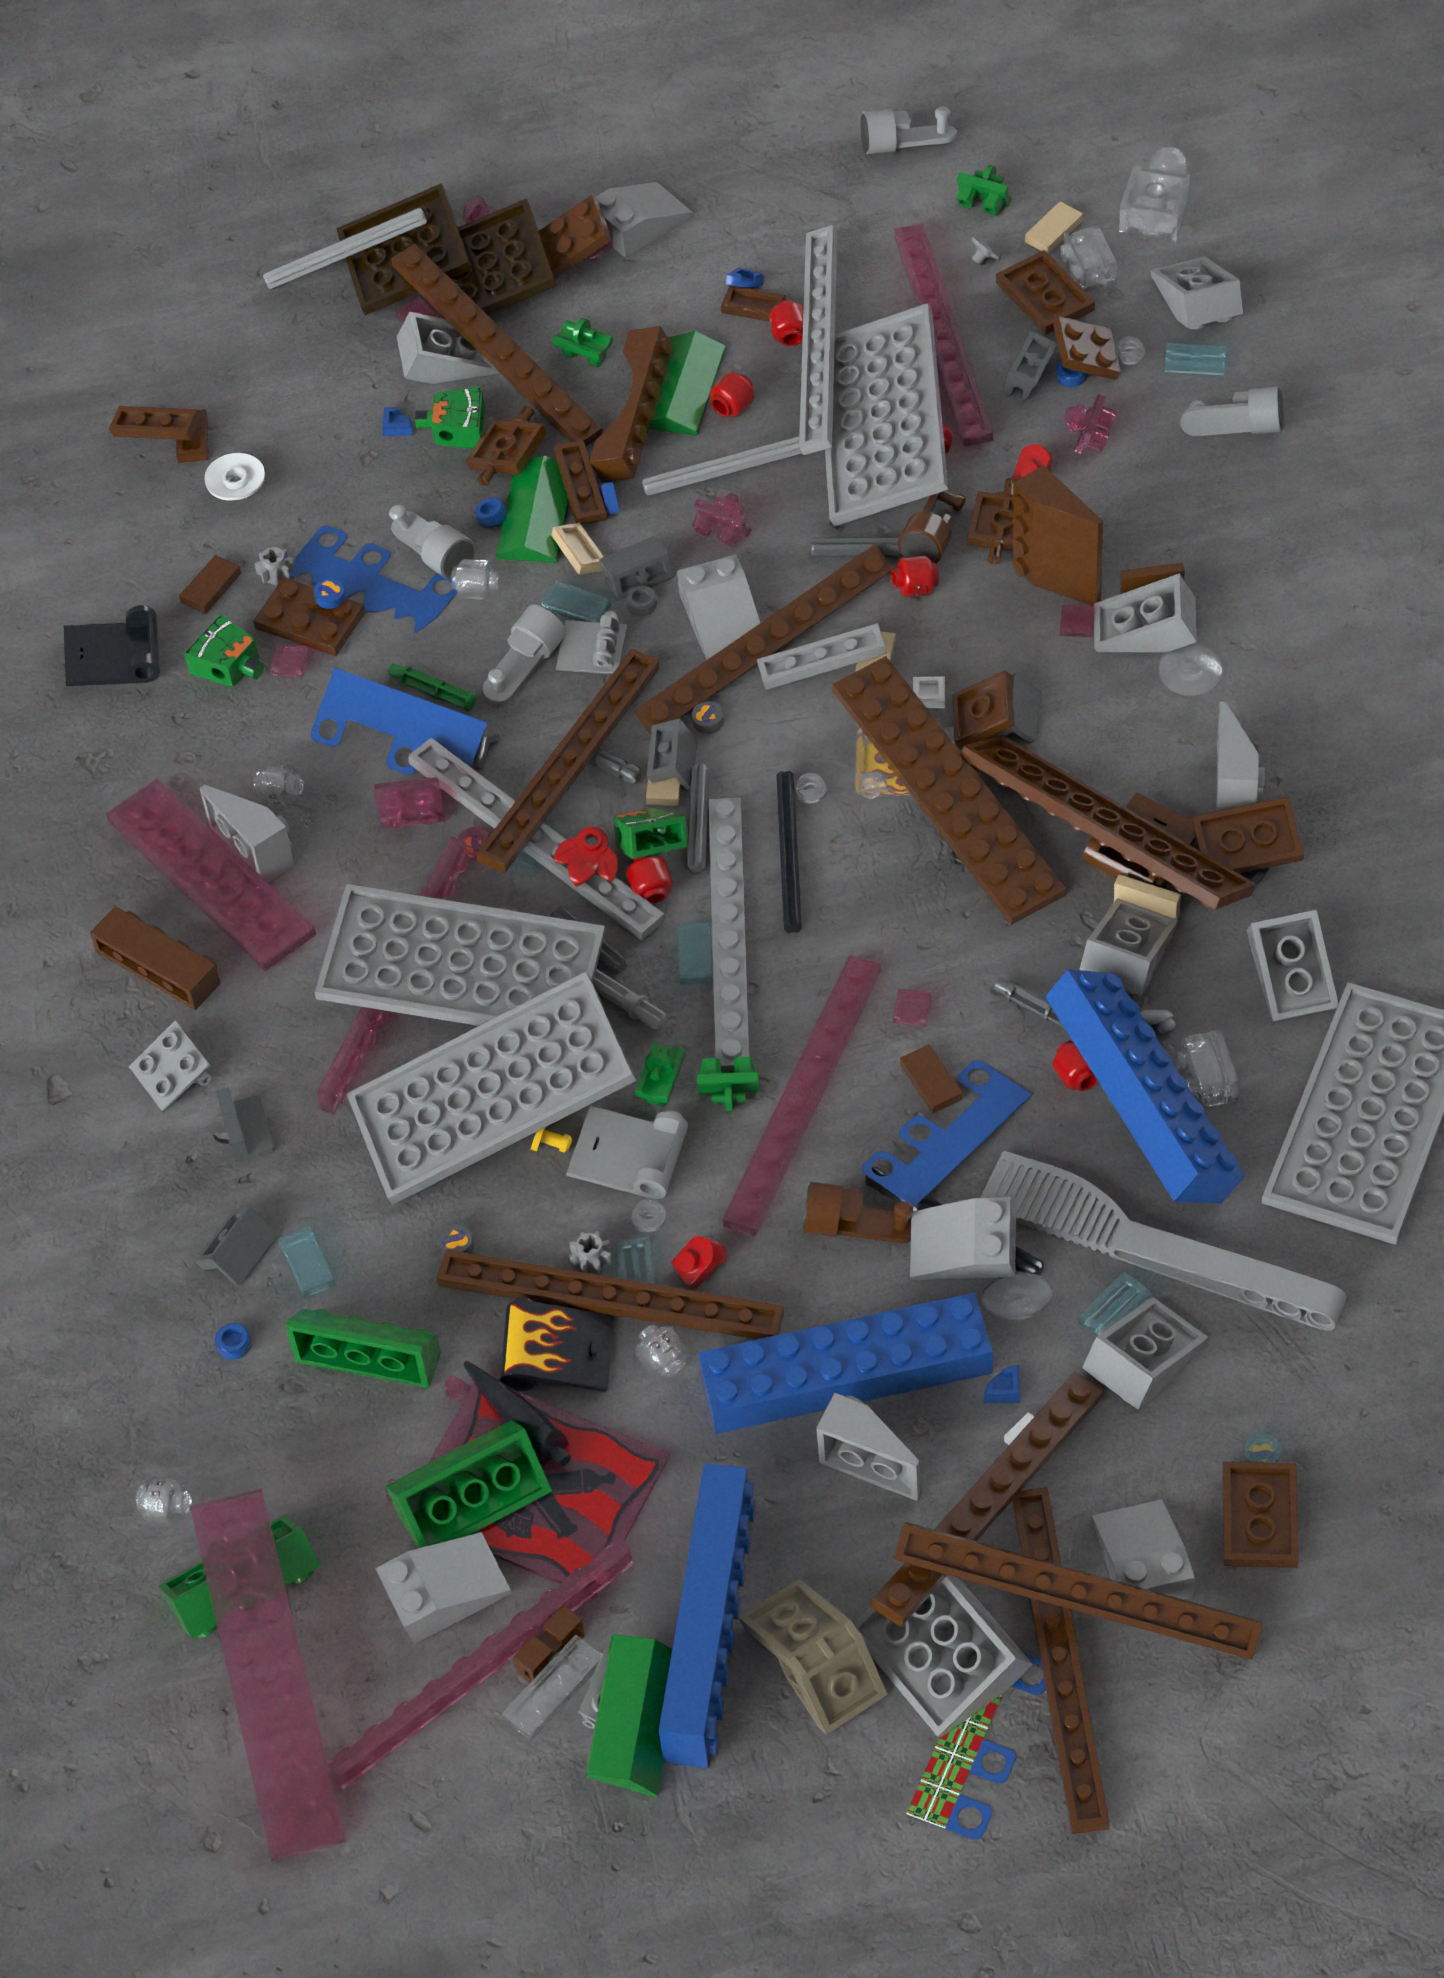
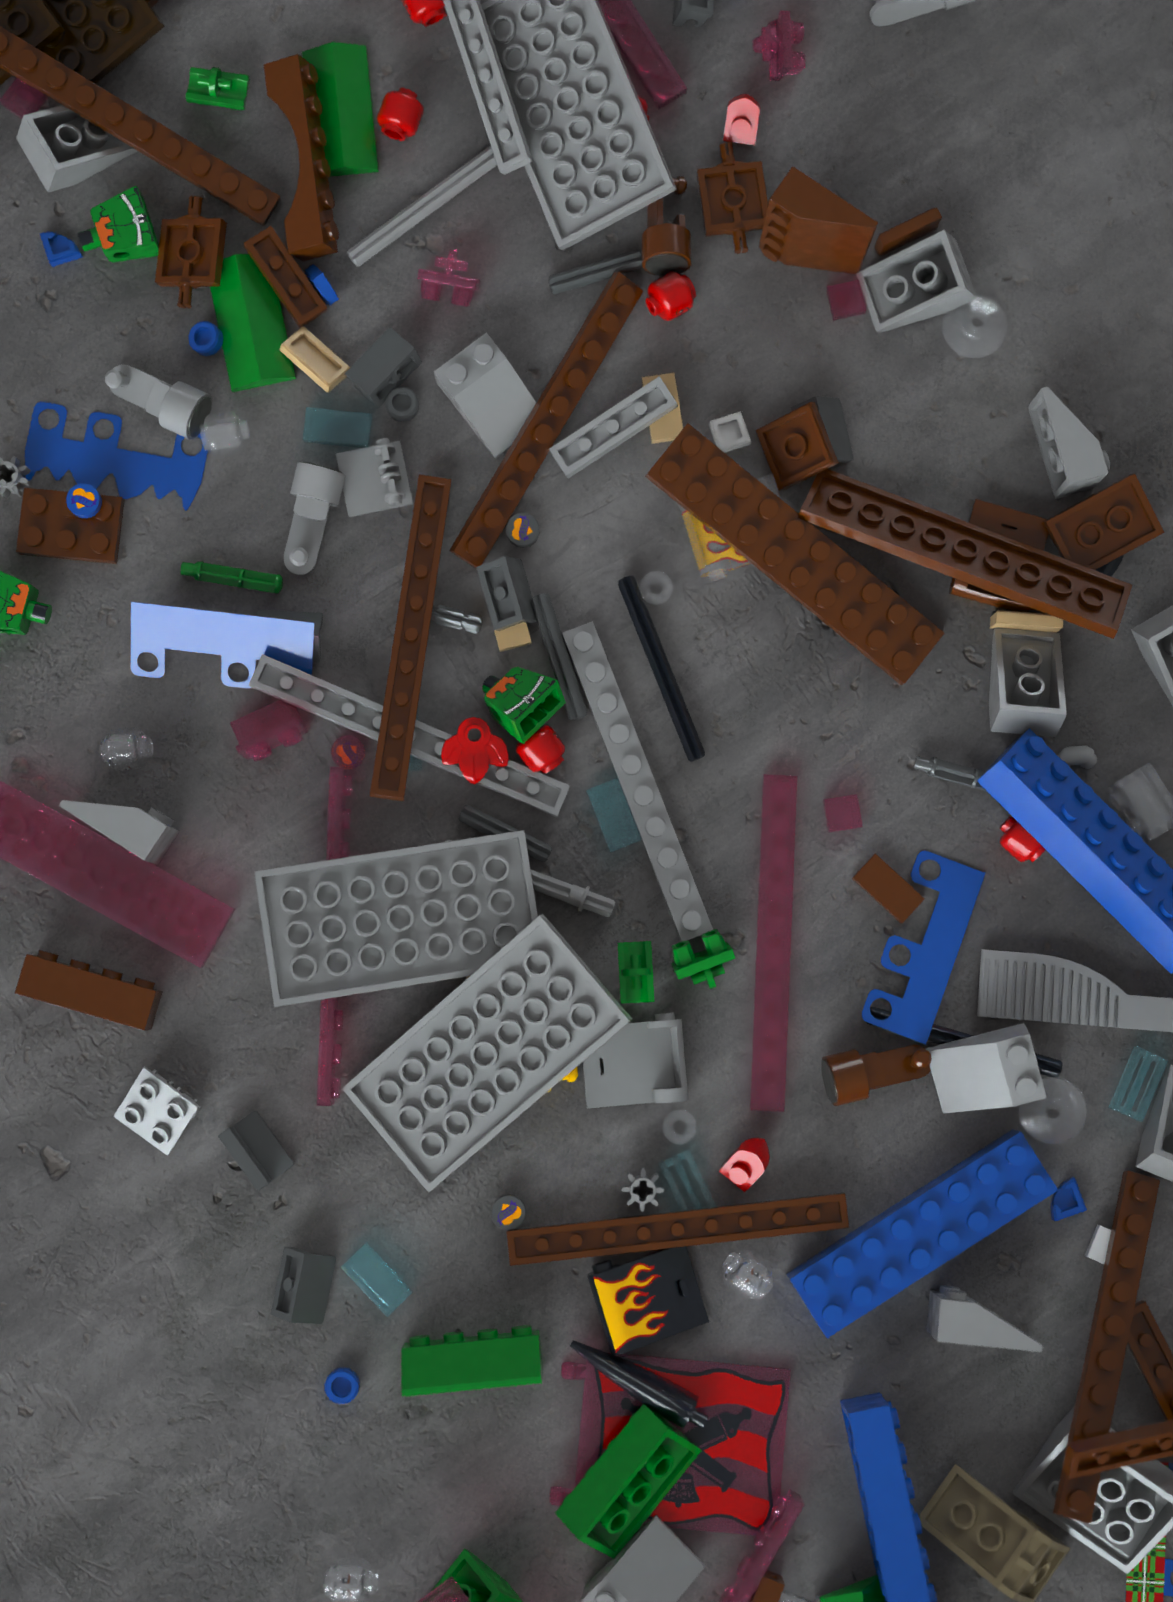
camera: 25 degrees left, 30 degrees up
(289, 660) = (73, 587): clear pink tile -> none

